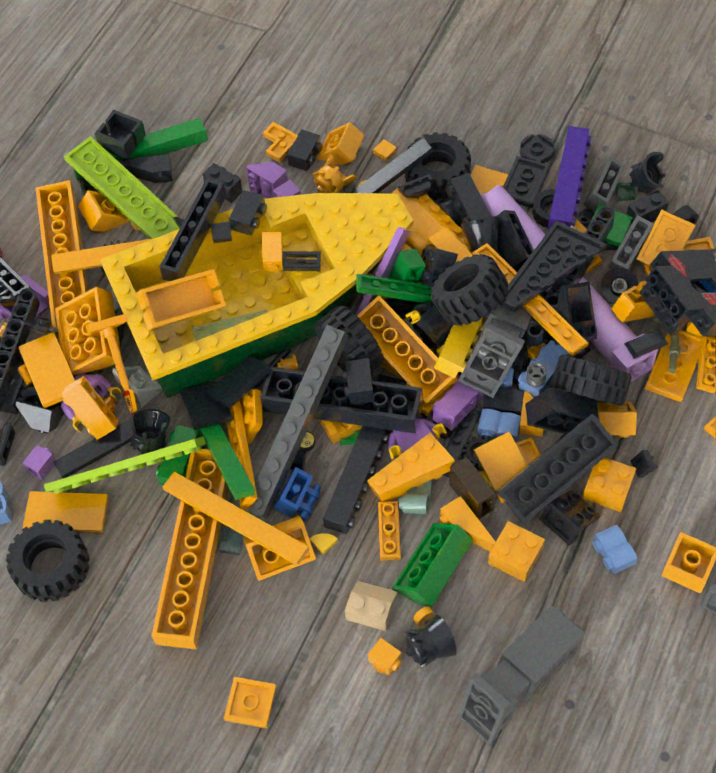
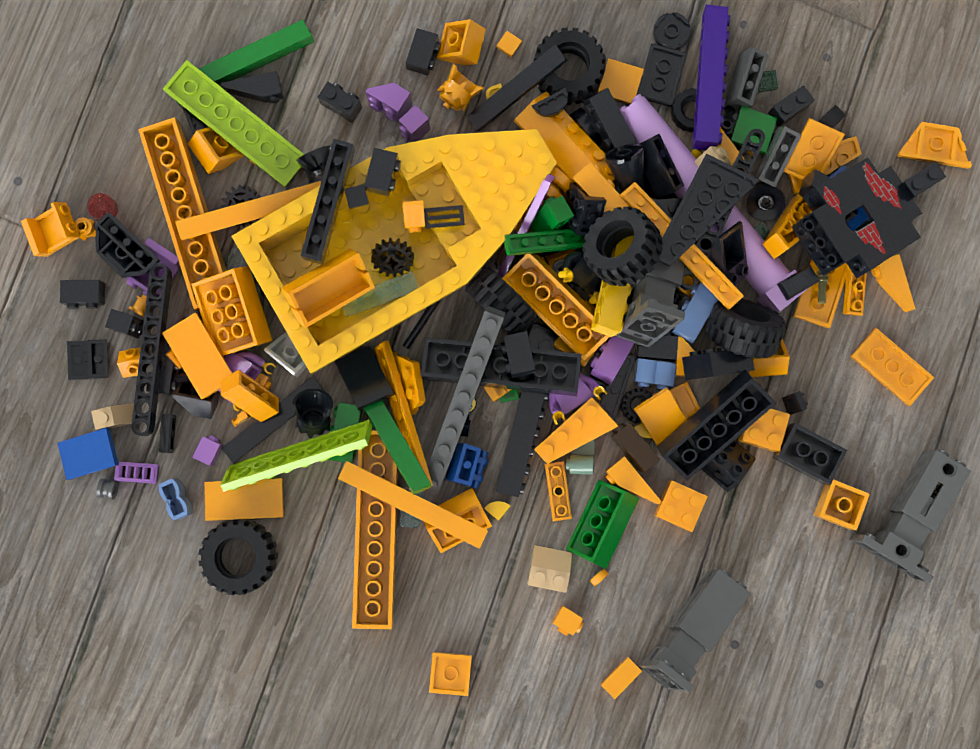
camera: 15 degrees left, 25 degrees up
(41, 325) = (180, 307): black plate -> none
(78, 437) = (241, 417): none -> light orange tile
(107, 327) = (254, 316): light orange piece -> none
(124, 134) = (222, 54): black piece -> none
(237, 293) = (392, 257): none -> black gear
(239, 381) = (395, 354): black tile -> none
(281, 139) = (398, 38): light orange plate -> none
(290, 363) = (440, 322): light orange brick -> none
(430, 642) = (608, 605): black hat -> none
(438, 726) = (621, 677): none -> light orange tile
(534, 370) = (694, 323): dark grey wheel -> none
(615, 549) = (771, 495): medium blue brick -> none
(648, 174) = (791, 64): black hat -> none
(657, 510) = (810, 454): none -> black brick

